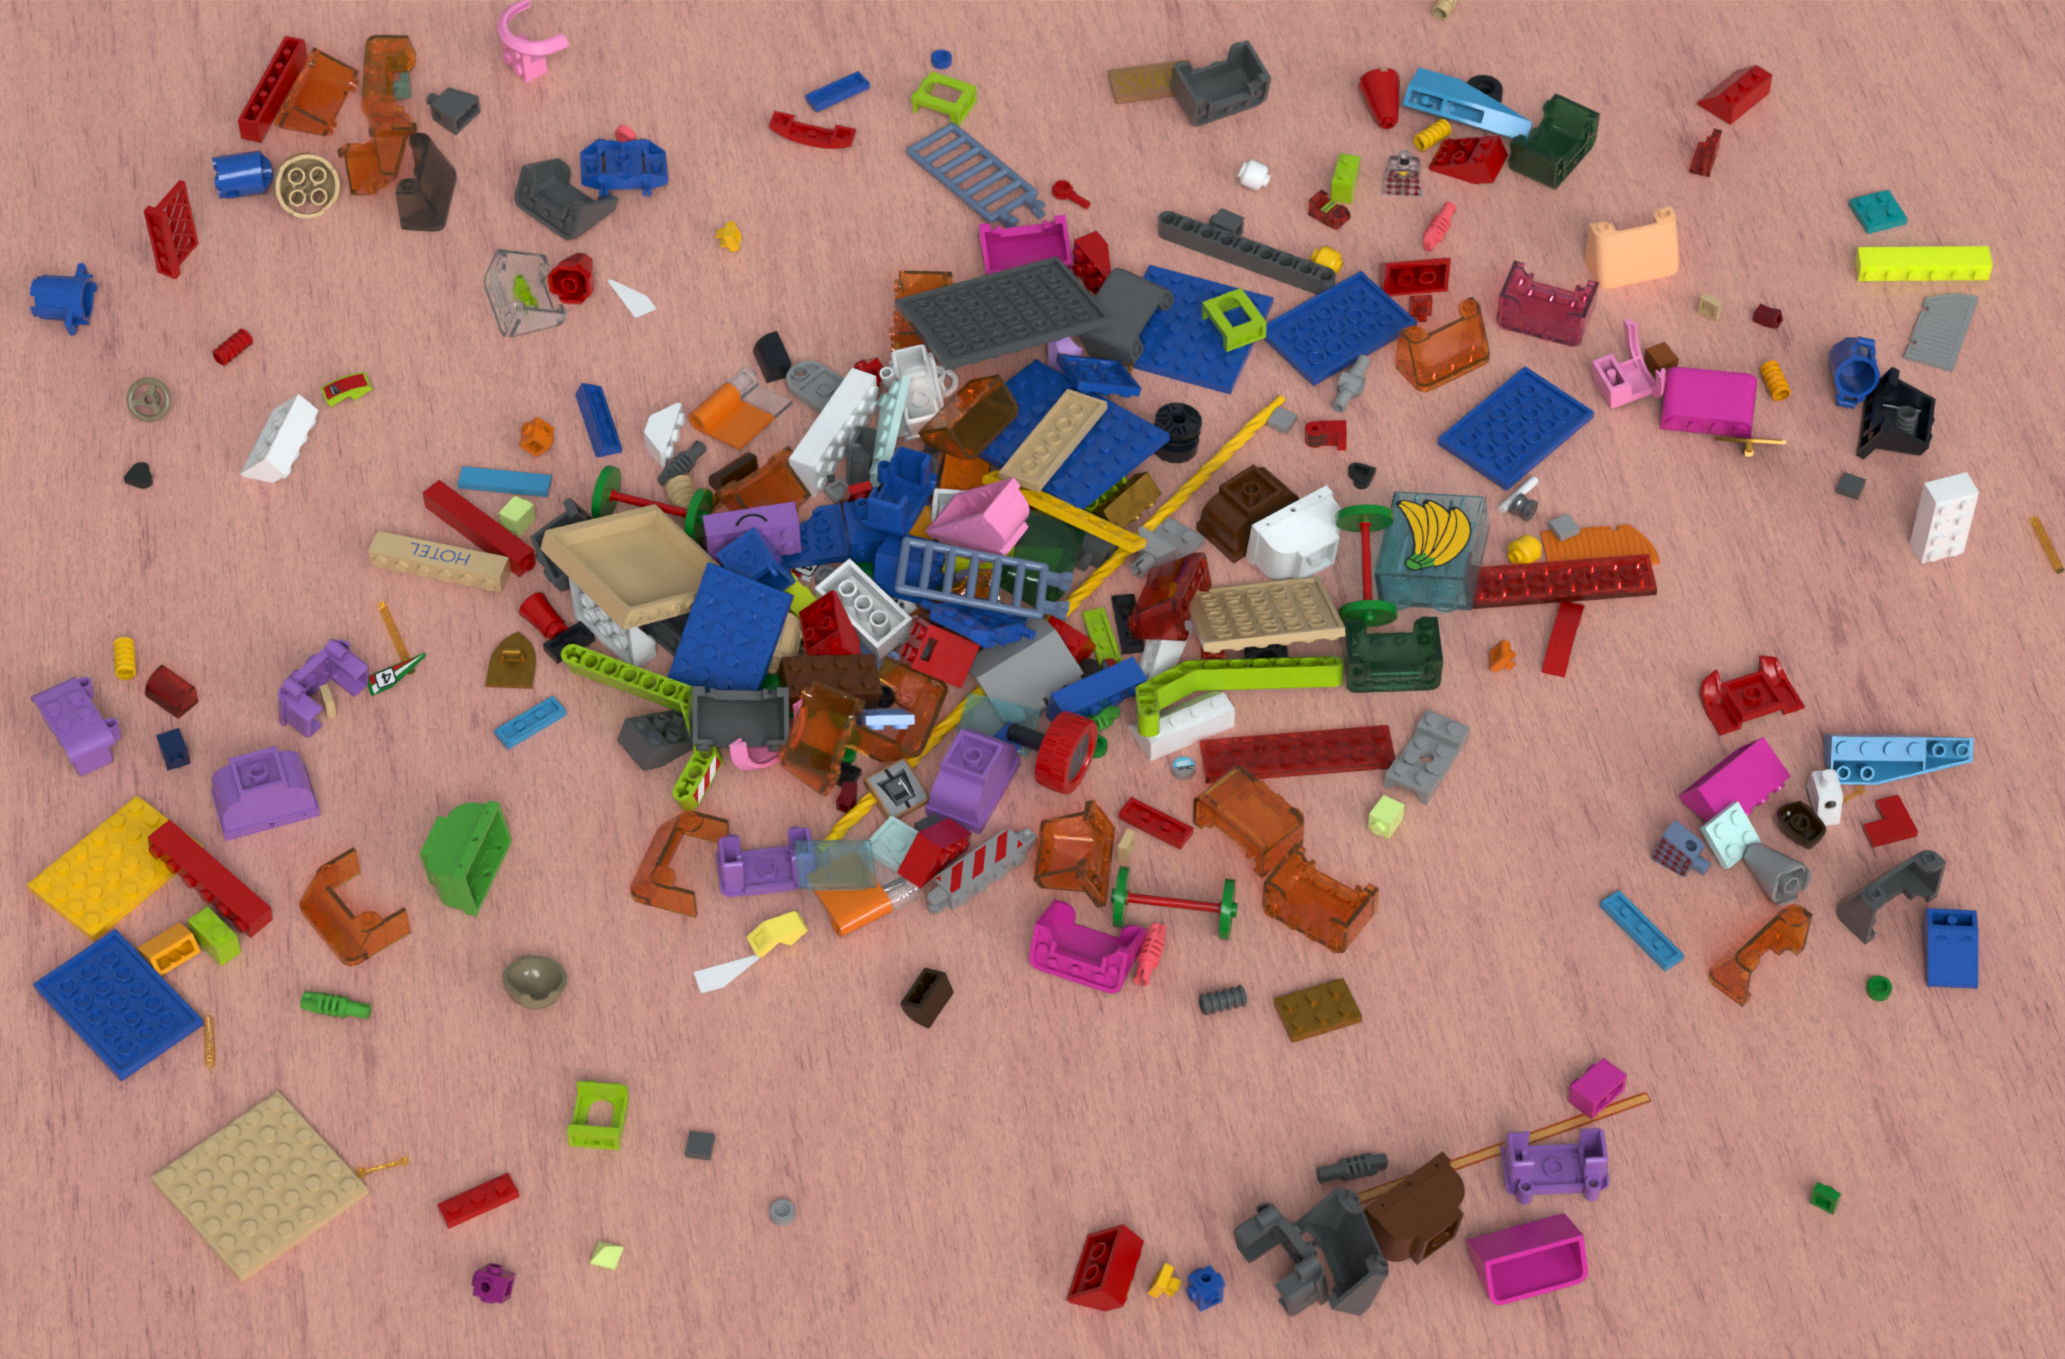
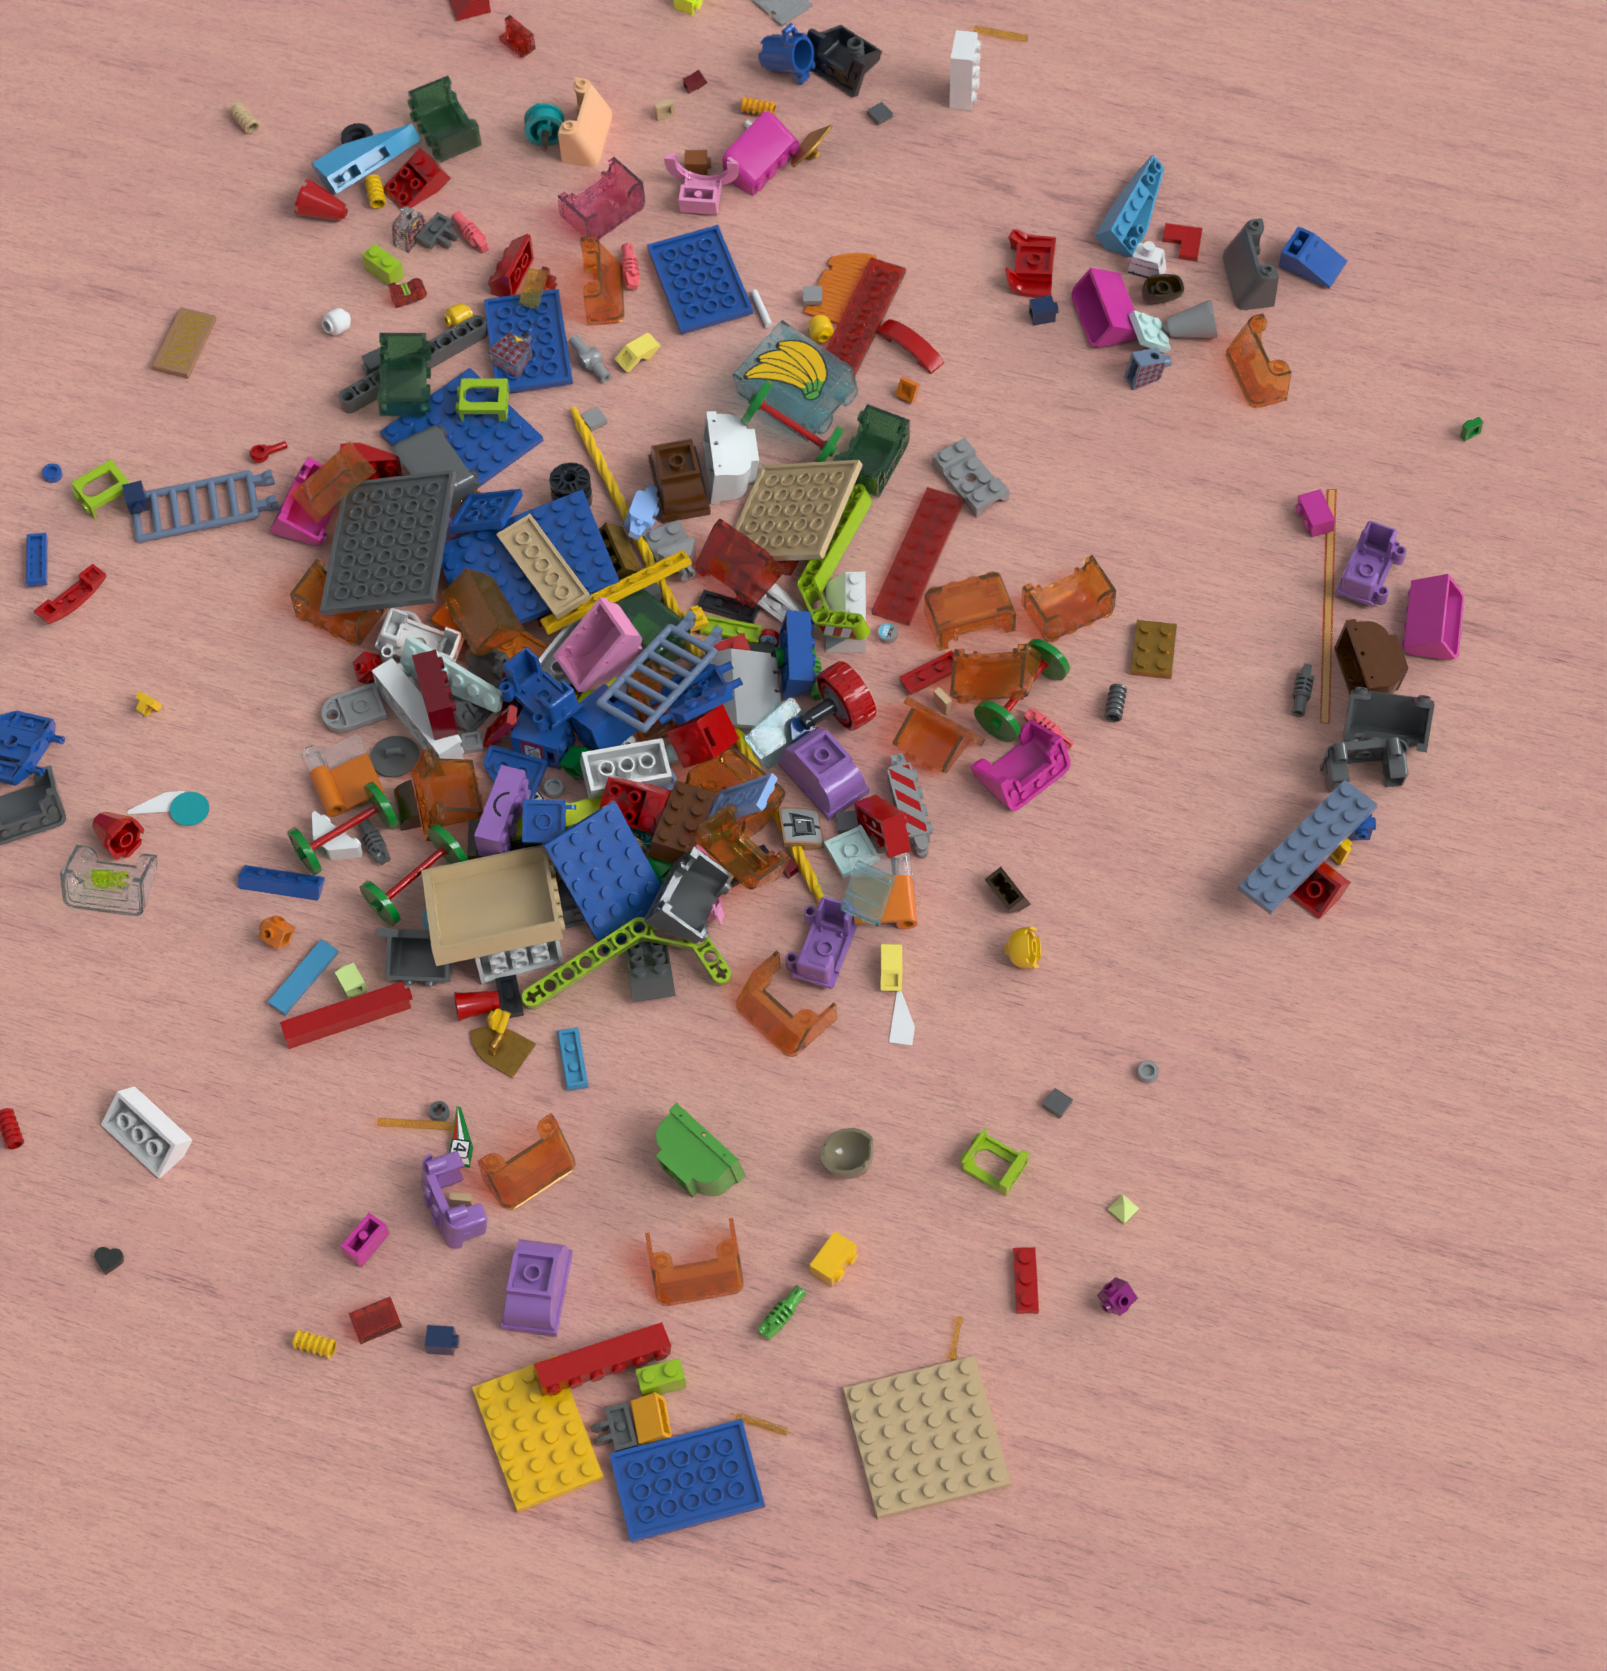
camera: 60 degrees left, 10 degrees up
(78, 724) = (373, 1403): medium lavender container -> none
(148, 927) = (620, 1427): none -> dark grey hinge
(153, 383) = (22, 1217): dark tan piece -> none
(246, 644) = (365, 1240): none -> dark pink brick
(350, 385) = (118, 1057): slope -> none
(388, 737) = (530, 1170): none -> clear orange windscreen
(415, 1022) = (834, 1259): none -> yellow brick
(417, 639) = (434, 1108): none -> dark grey bush
(439, 561) = (363, 1059): tan brick -> none
(535, 642) = (498, 1020): none -> yellow plate
(631, 415) = (380, 805): none -> green piece
(639, 320) = (189, 808): none -> teal sticker
(680, 492) = (410, 852): tan piece -> none
(772, 357) = (301, 728): black brick -> none
(782, 435) = (395, 756): none -> dark grey shield
(844, 419) = (436, 693): none -> dark red wedge
(864, 1038) = (1024, 948): none -> yellow cylinder
(946, 122) = (135, 497): none -> dark blue brick
(1063, 244) = (333, 482): none -> clear orange windscreen
(1089, 598) = (700, 619): none -> yellow tile
(1130, 1236) = (1307, 847): none -> sand blue plate
(1175, 867) = (994, 674): none -> clear orange windscreen
(1182, 499) = (641, 512): none -> light blue hinge
(1212, 244) = (404, 375): none -> clear green windscreen
(1222, 86) = (231, 295): dark grey windscreen -> none
(1307, 316) = (511, 353): none -> clear torso
(1326, 434) = (629, 395): red leg -> none
(1361, 474) = (679, 394): pearl dark grey tile -> none
(1386, 816) = (1011, 527): yellowish green brick -> none
(1390, 416) = (631, 354): none -> light yellow slope
(1397, 298) = (533, 288): none -> clear yellow plate
(1419, 200) = (435, 230): none -> dark grey hinge
(1488, 366) = (629, 267): none -> coral hinge
(1524, 507) = (779, 309): flat silver wheel -> none
(1608, 209) = (543, 124): none -> teal wheel
(1641, 930) = (1193, 425): dark azure tile -> none
(1692, 730) = (1043, 310): none -> dark blue brick
(1878, 988) = (1316, 316): green tile -> none

